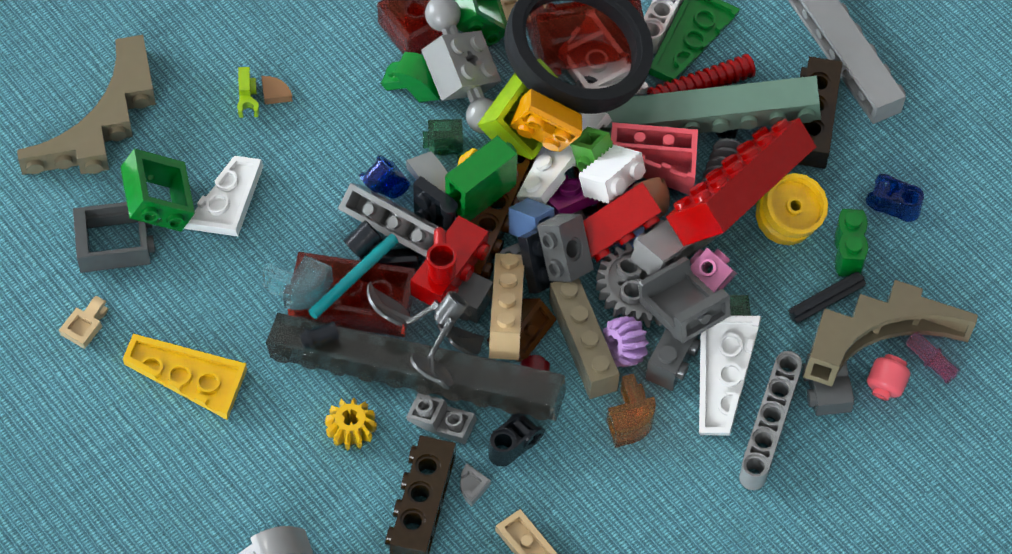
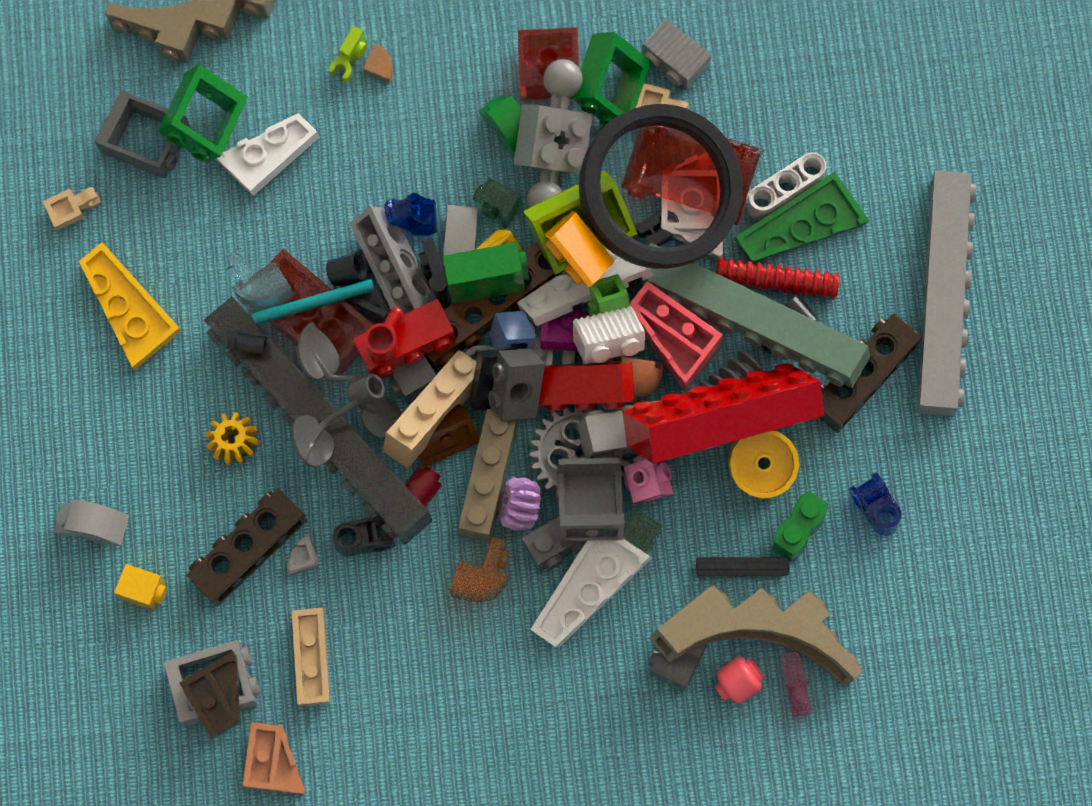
camera: 40 degrees right, 15 degrees up
(440, 419) = (317, 483): light grey slope -> none
(766, 431) = (594, 670): light grey beam -> none

